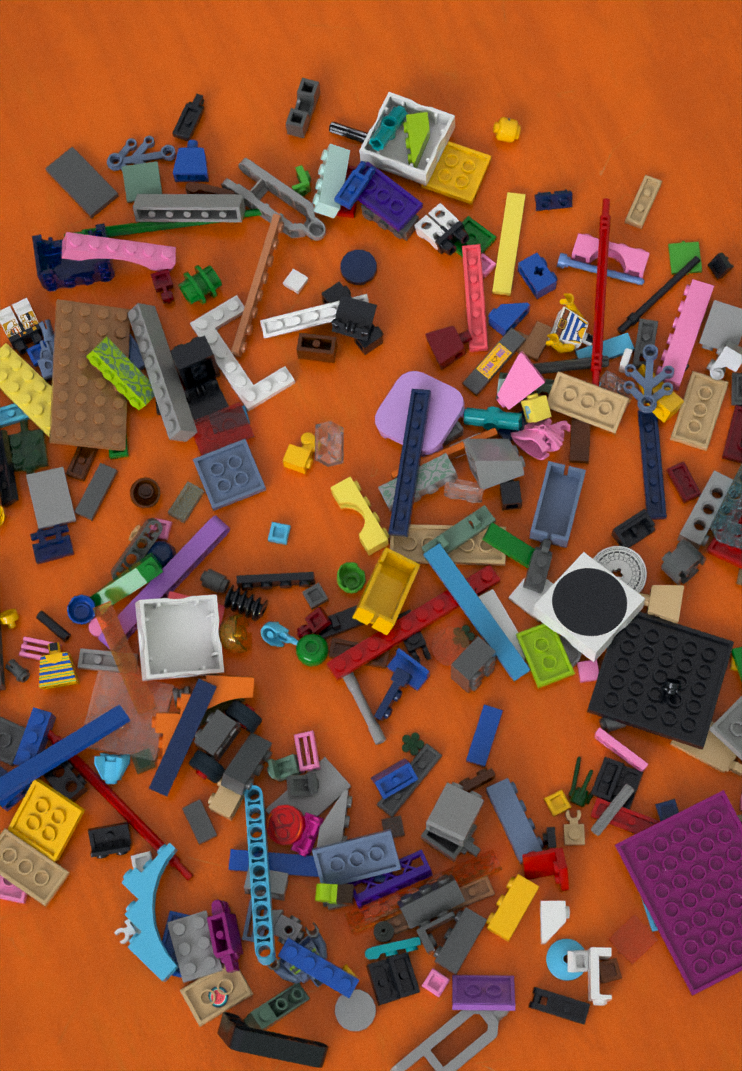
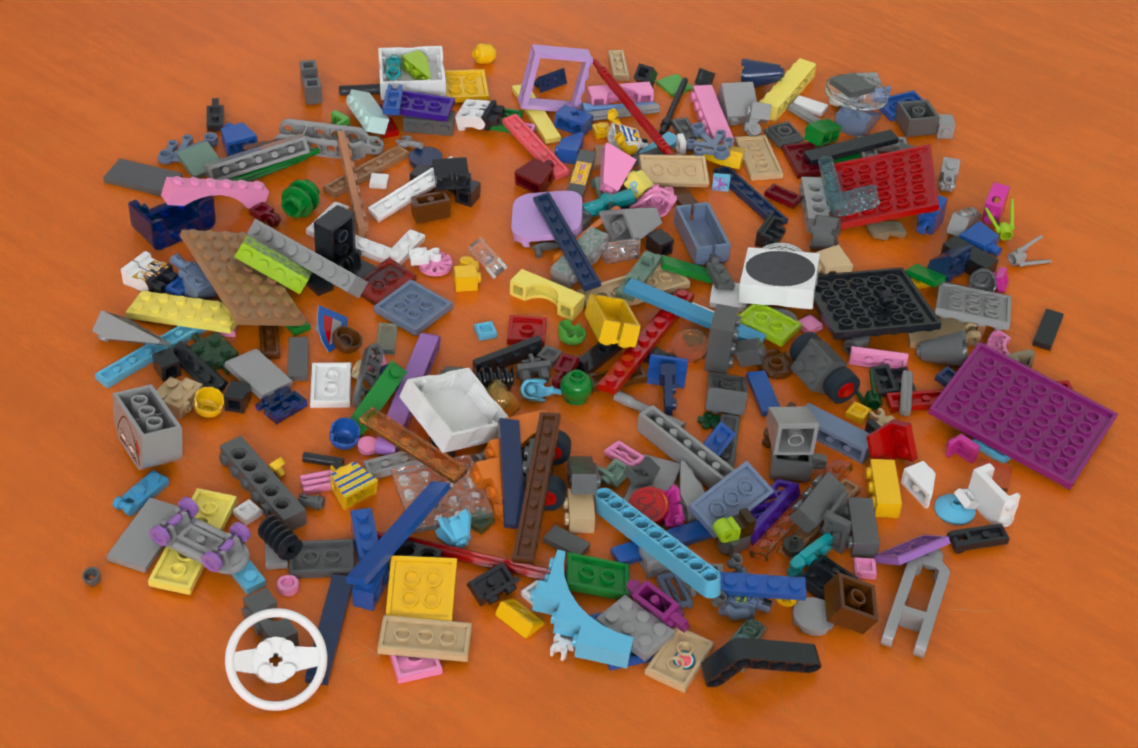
camera: 40 degrees left, 30 degrees down
(19, 518) = (237, 397): none -> black brick
(107, 537) = (330, 385): none -> white tile
(112, 876) = (519, 617): none -> yellow slope
(137, 467) = (326, 324): none -> shield
(190, 767) = (536, 488): none -> reddish brown tile
(198, 874) = (596, 576): none -> green tile
(272, 410) = (422, 256): none -> white plate
(280, 606) = (533, 367): none -> dark grey hips
(283, 423) = (435, 268): none -> bright pink wheel
(297, 259) = (376, 165): none -> medium nougat tile
(316, 551) = (526, 327): none -> red tile
(352, 237) = (407, 141): none -> light grey bar
(359, 775) = (682, 446): none -> light grey brick
(385, 1023) = (850, 603): none -> reddish brown brick
(391, 446) = (543, 246): none -> dark grey bar
(446, 720) = (726, 394): none -> dark grey slope
(499, 684) = (750, 352): none -> dark grey brick
(516, 715) = (777, 371): none -> reddish brown tile
(540, 211) = (557, 53): none -> lavender window
(549, 740) = (822, 368): none -> brick
(557, 295) = (600, 130): none -> yellow plate
(588, 278) = (623, 112): none -> light grey axle
(625, 900) = (963, 447): none -> dark pink bracket
(630, 434) = (721, 182): none -> medium azure tile
(654, 238) = (645, 74): none -> black brick
(692, 774) = (944, 350): none -> dark grey cone

